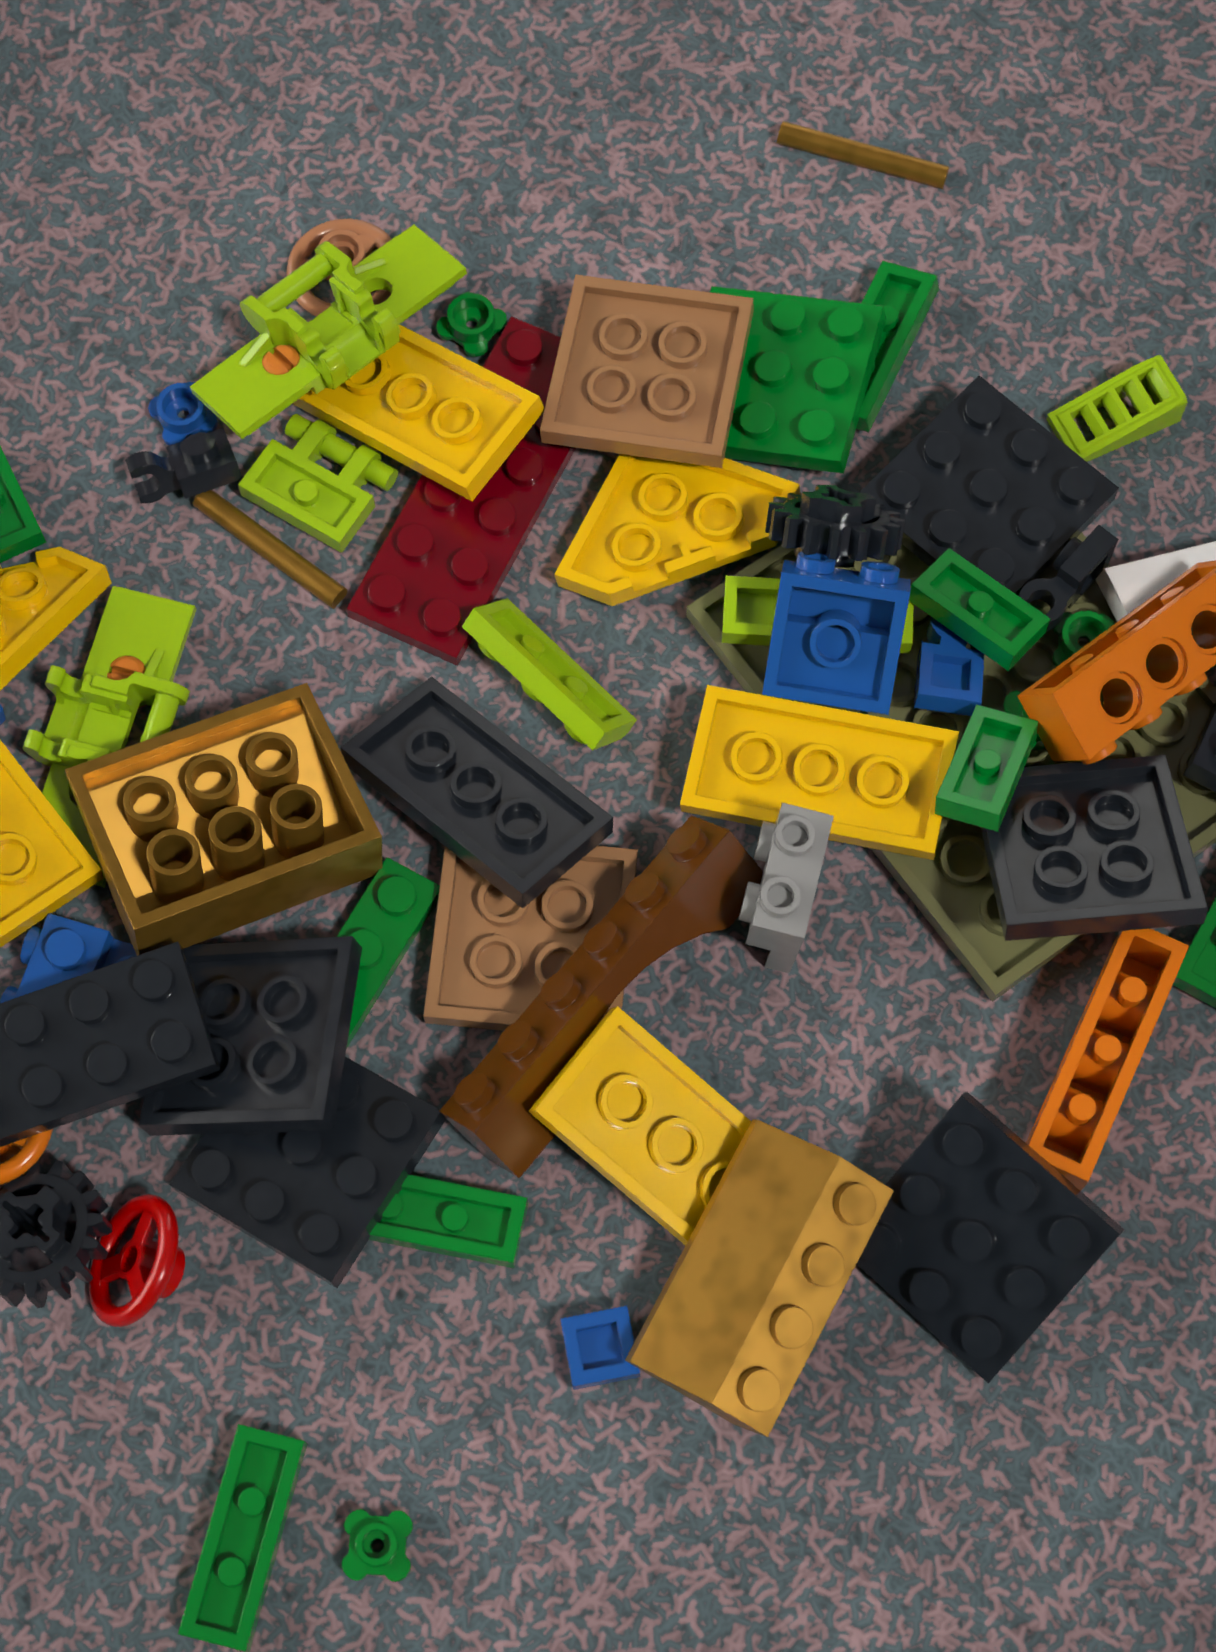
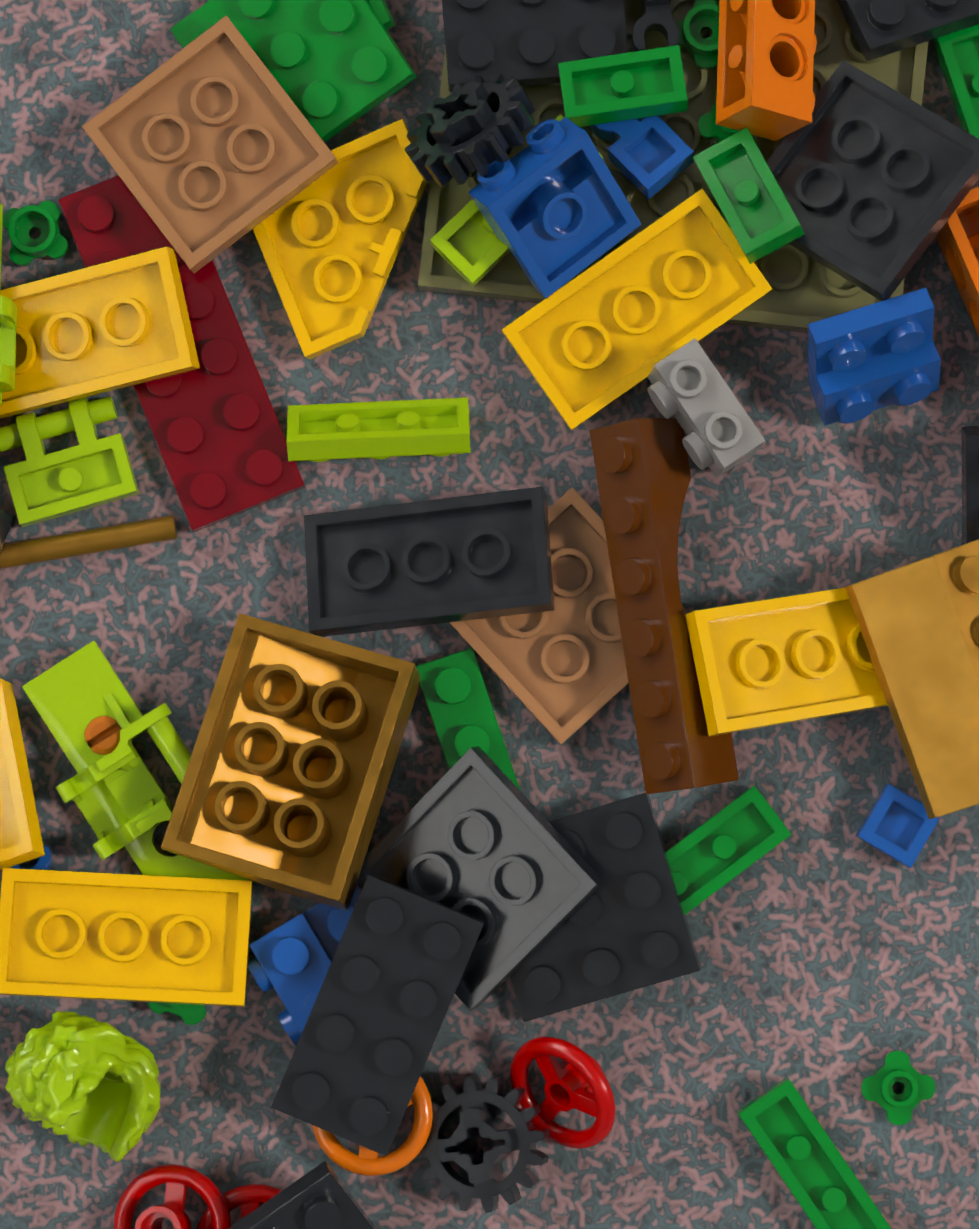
camera: 50 degrees left, 15 degrees up
(958, 981) = (873, 358): none -> blue plate

